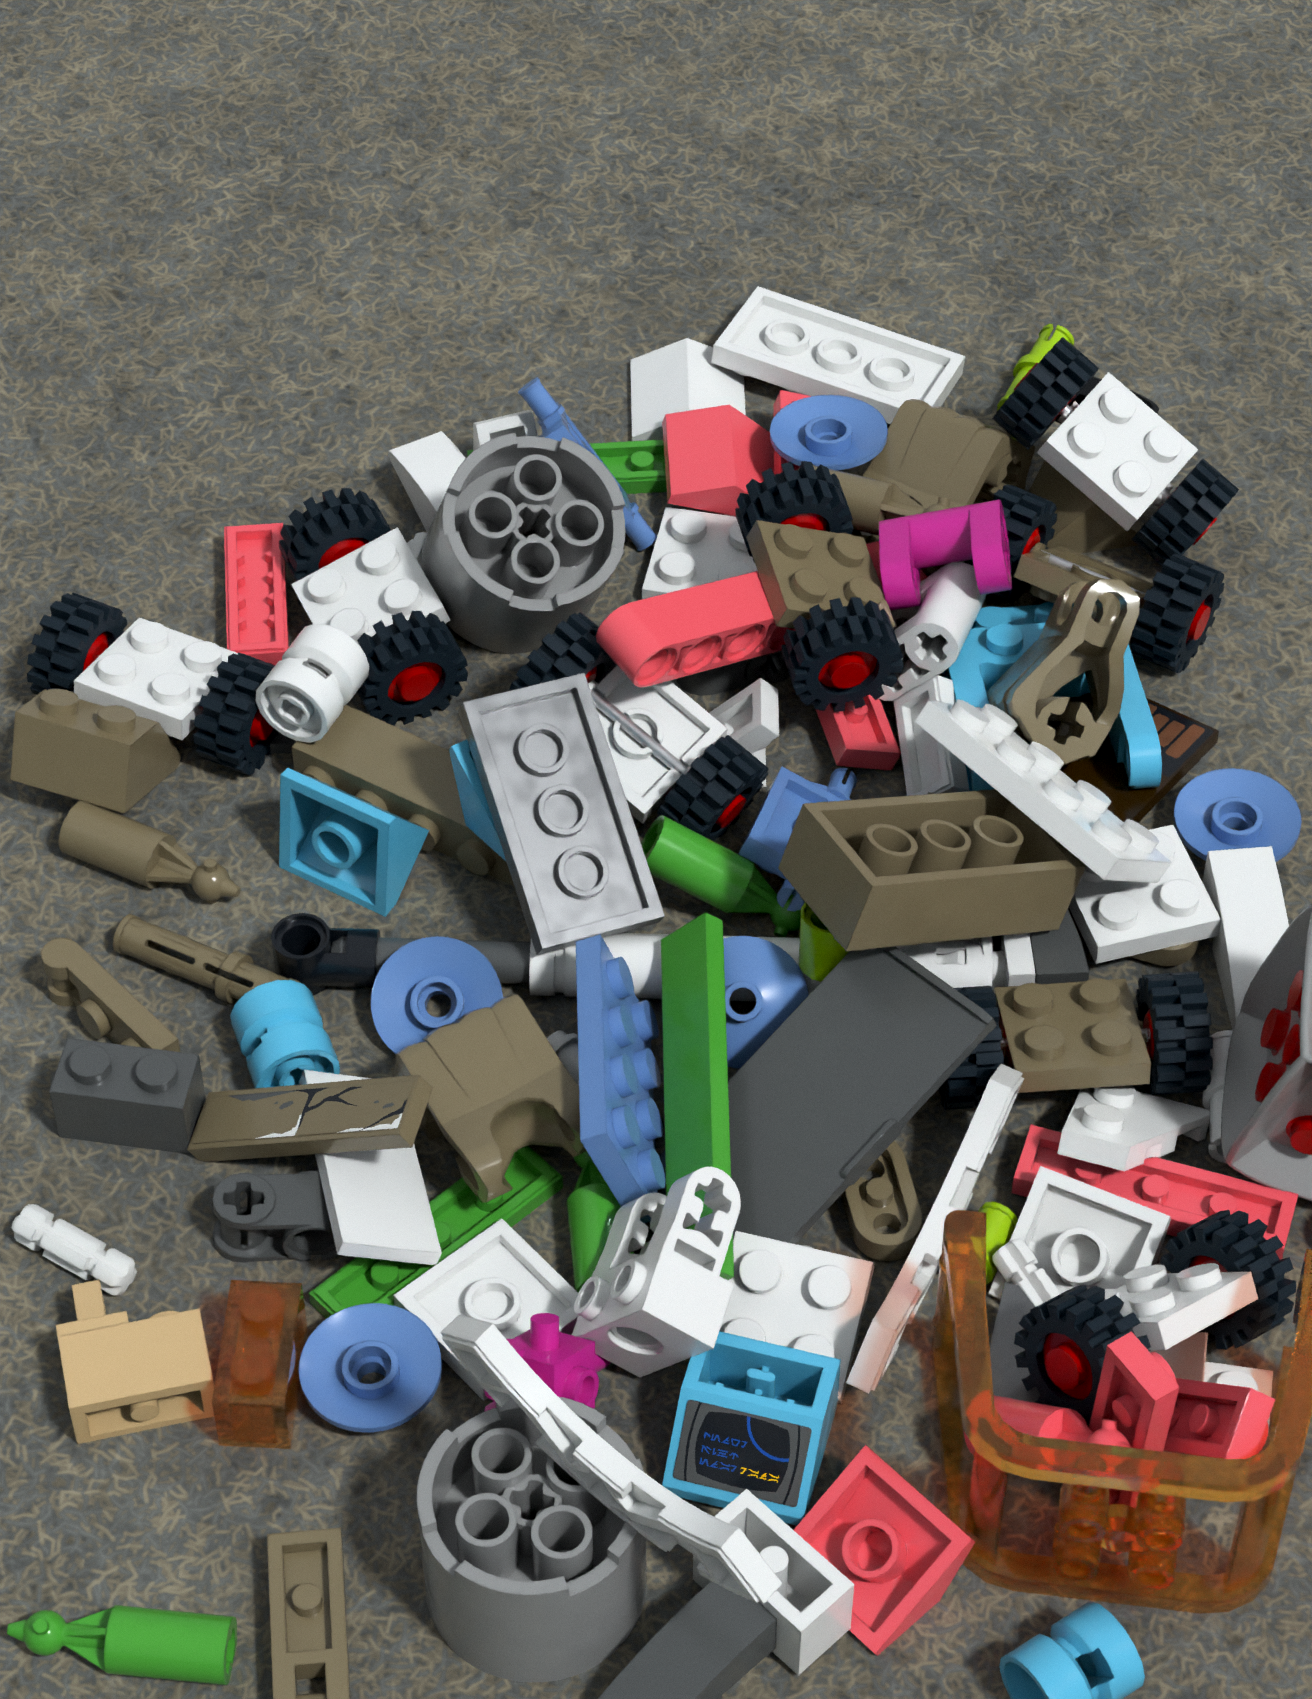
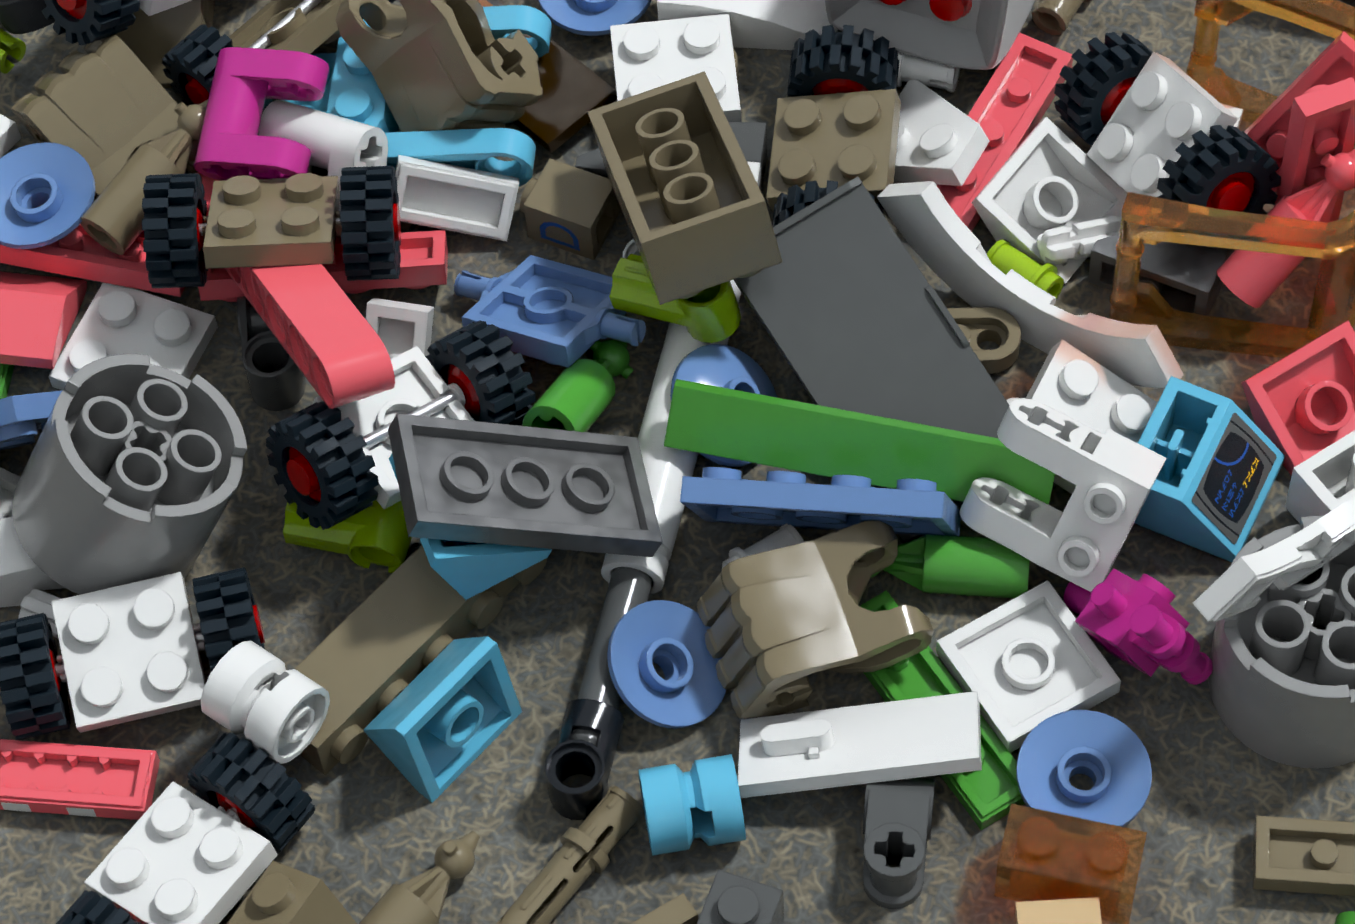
camera: 75 degrees left, 10 degrees up
(311, 1119) = (821, 771): dark tan tile -> none
(1035, 784) = (608, 85): white plate -> none

